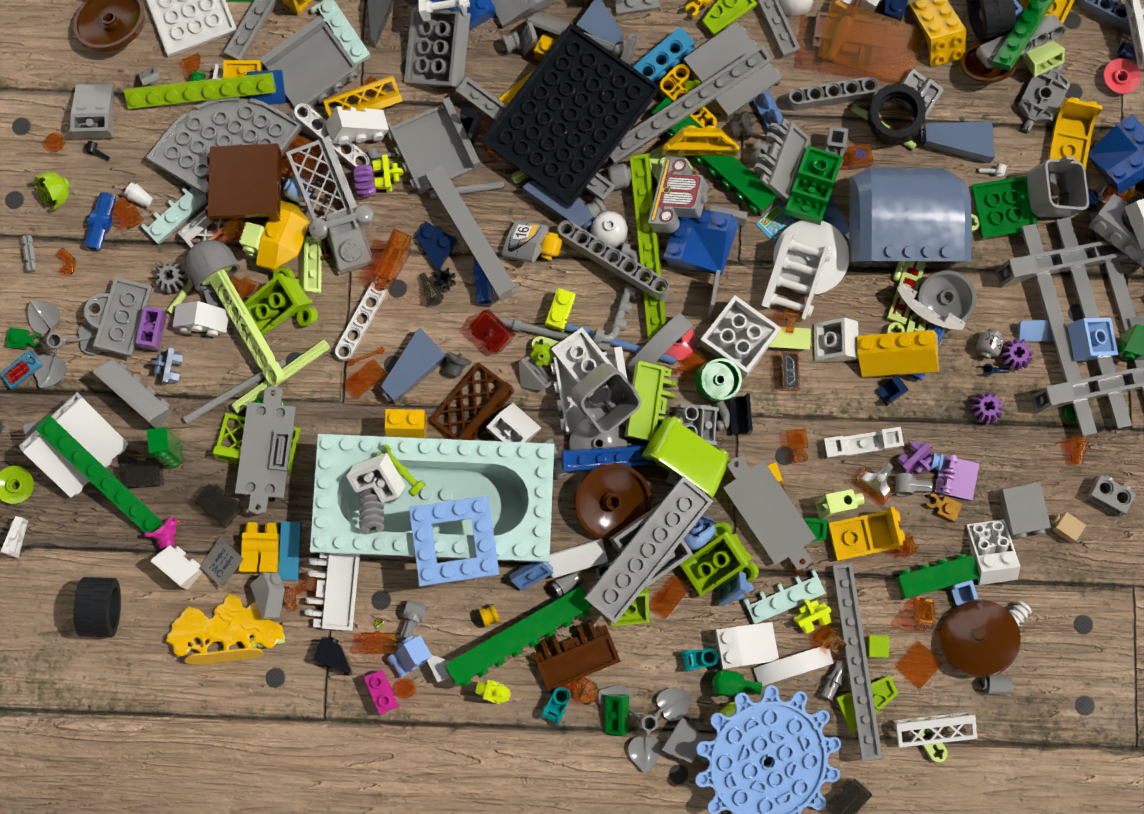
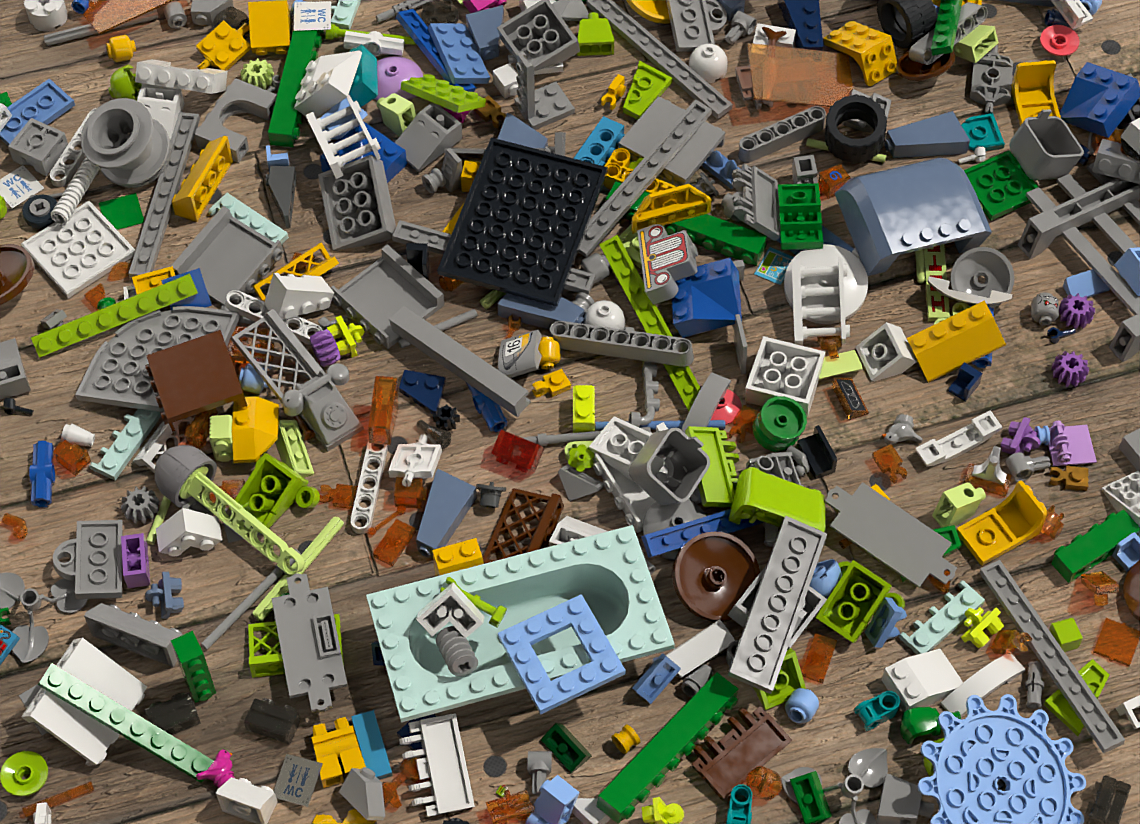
camera: 15 degrees left, 20 degrees down
(36, 513) = (60, 798): none -> clear orange bar
(218, 44) = (119, 270): none -> clear orange tile
(337, 322) = (342, 496): none -> clear orange plate
(391, 339) = (410, 496): none -> clear orange brick
(404, 312) = (415, 460): none -> white plate
(441, 604) = (566, 747): none -> dark green slope
(530, 209) = (513, 326): none -> clear orange hand
(546, 275) = (554, 383): none -> yellow plate
(639, 635) = (801, 705): none -> light blue head
(819, 418) = (901, 431): none -> light grey animal
(1011, 148) = (983, 132): none -> teal tile

